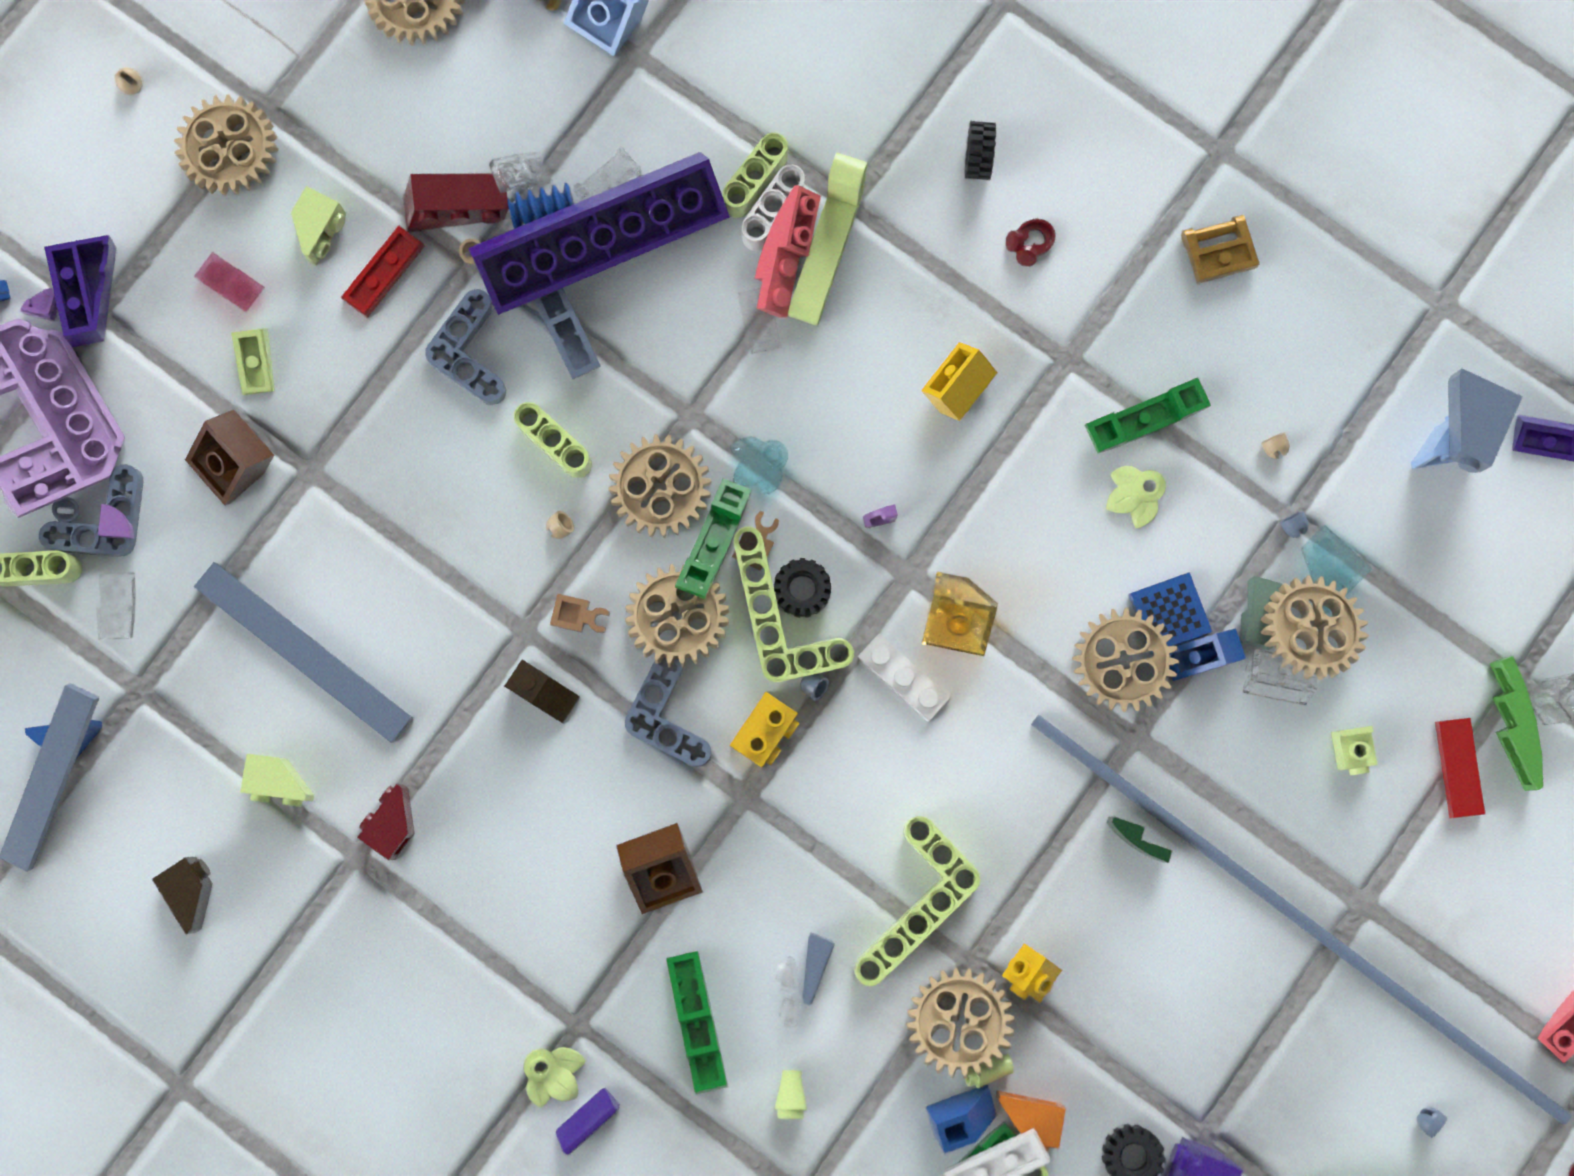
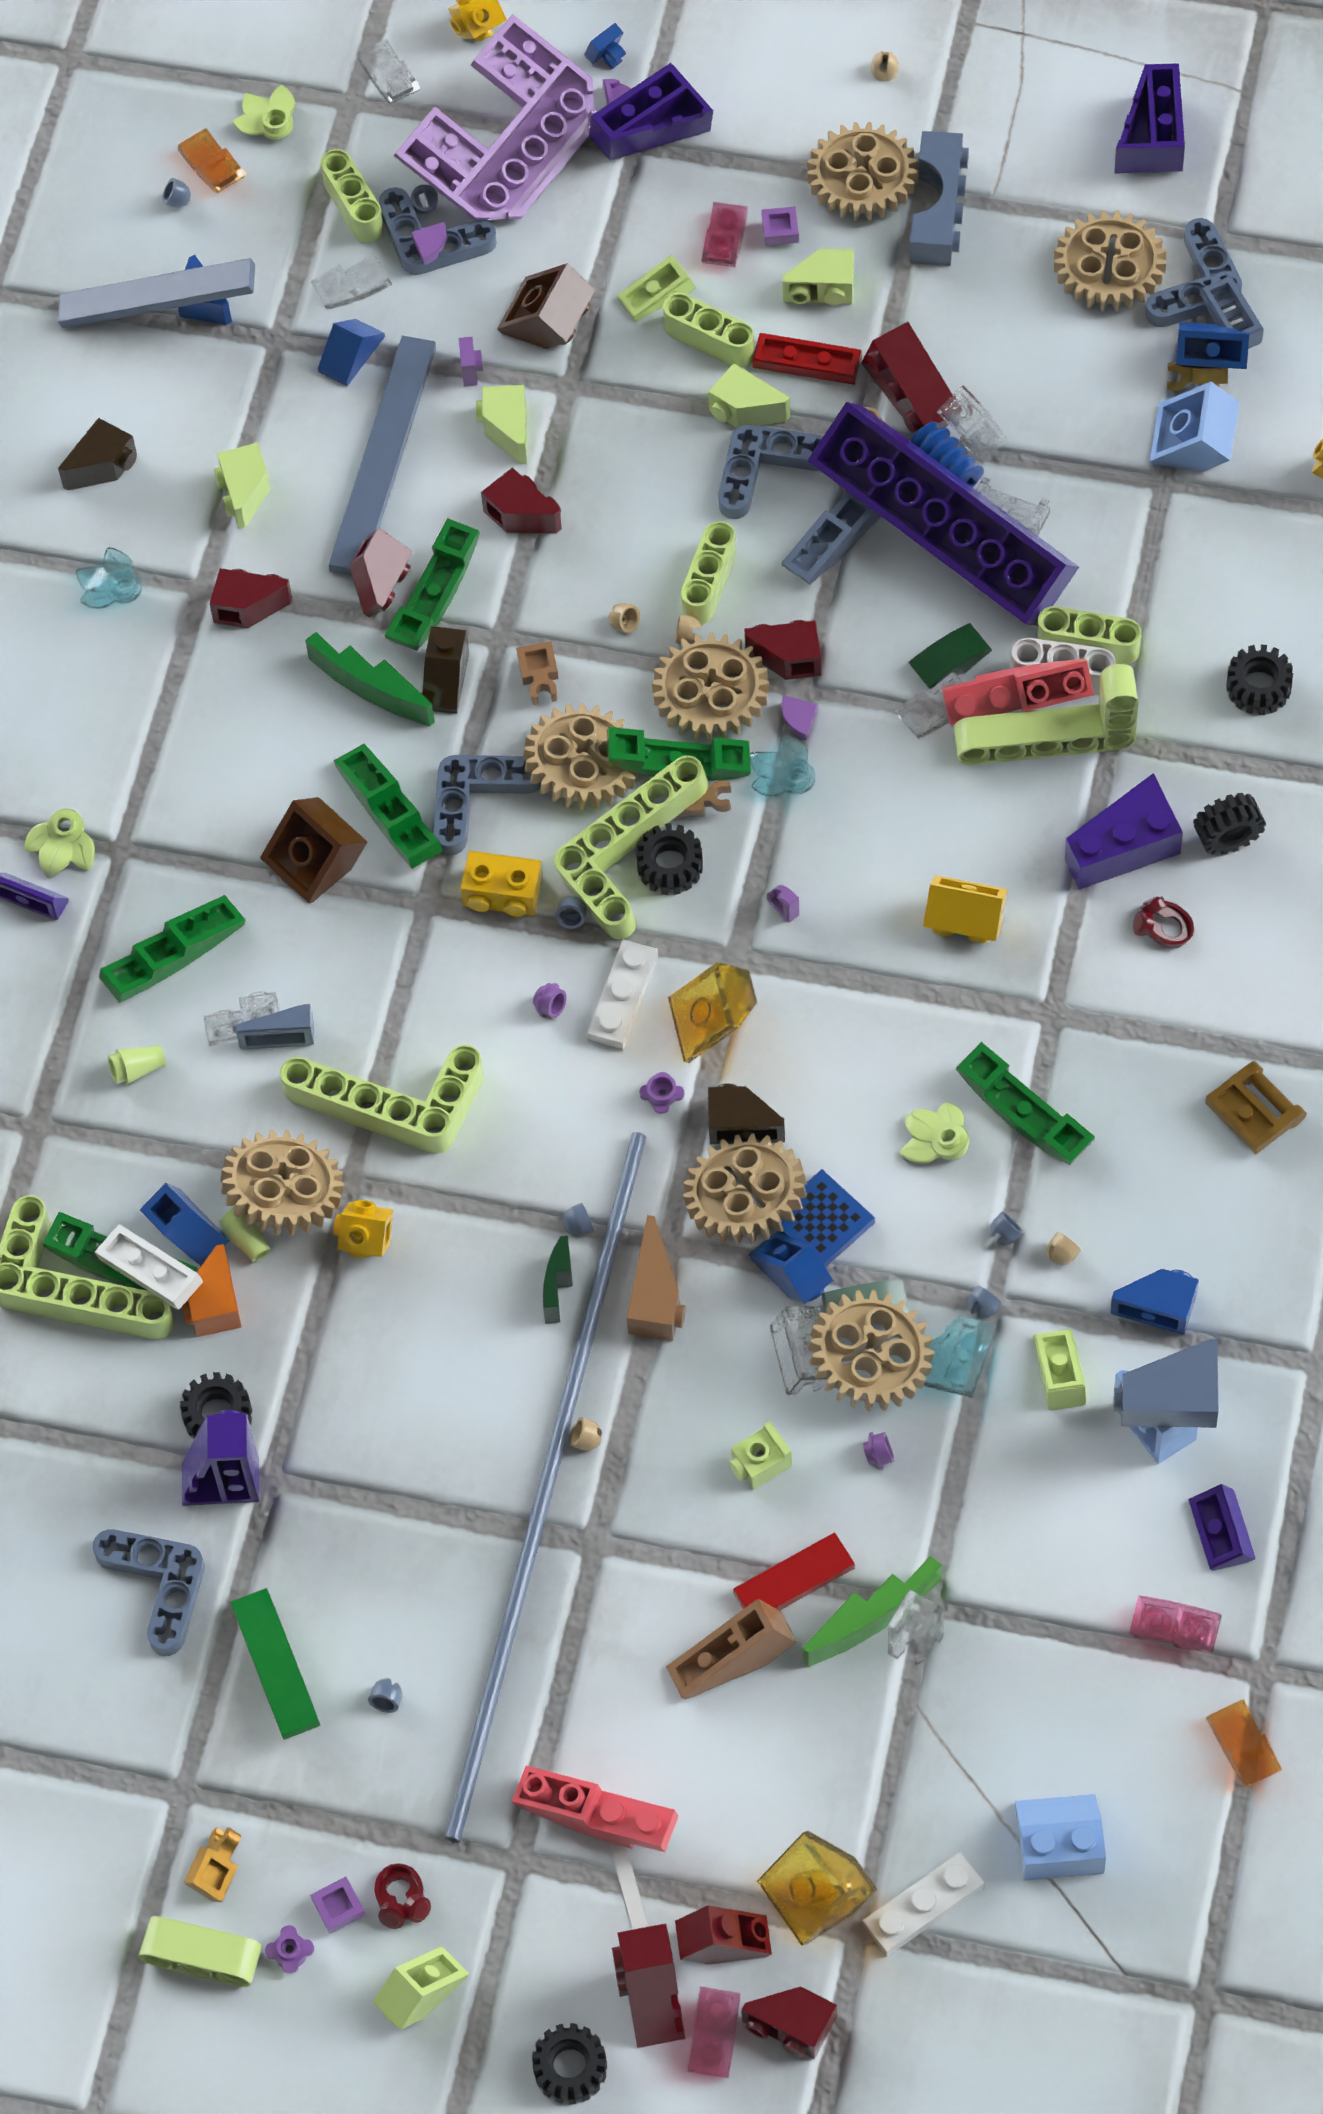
camera: 70 degrees right, 20 degrees down
(183, 635) = (348, 349): none -> blue slope
(245, 234) = (780, 226): none -> medium lavender plate
(249, 541) = (470, 361): none -> medium lavender plate
(254, 81) = (933, 230): none -> sand blue arch
(303, 336) = (708, 329): none -> yellowish green beam
(310, 934) = (104, 582): none -> clear light blue plate
(321, 537) = (505, 418): none -> yellowish green slope
(402, 336) = (747, 400): none -> yellowish green slope
(414, 562) = (519, 506): none -> dark red slope
(420, 705) = (377, 568): none -> slope
(456, 665) = (436, 586): none -> green slope
(531, 748) = (377, 684): none -> green slope
(595, 480) = (685, 628): none -> tan hinge
(645, 790) = (387, 805): none -> green slope
(655, 410) = (787, 648): none -> dark red slope
(716, 429) = (798, 715): none -> medium lavender tile
(720, 288) = (949, 654): none -> dark green slope
(860, 51) = (1264, 662): none -> black tyre
(885, 737) = (549, 1000): none -> medium lavender plate
(948, 230) = (1124, 836): none -> dark purple wedge
(1010, 677) = (661, 1082): none -> medium lavender plate
(1058, 636) = (740, 1112): none -> dark brown slope
(1091, 800) = (577, 1221): none -> sand blue hinge
(1185, 769) = (654, 1298): none -> medium nougat slope
(1241, 479) = (1007, 1228): none -> sand blue hinge
(1277, 874) = (585, 1434): none -> tan hinge
(1352, 392) = (1158, 1300): none -> blue slope
(1369, 492) = (1060, 1369): none -> yellowish green slope
(1384, 658) = (878, 1450): none -> medium lavender plate
(1508, 842) = (732, 1650): none -> medium nougat slope

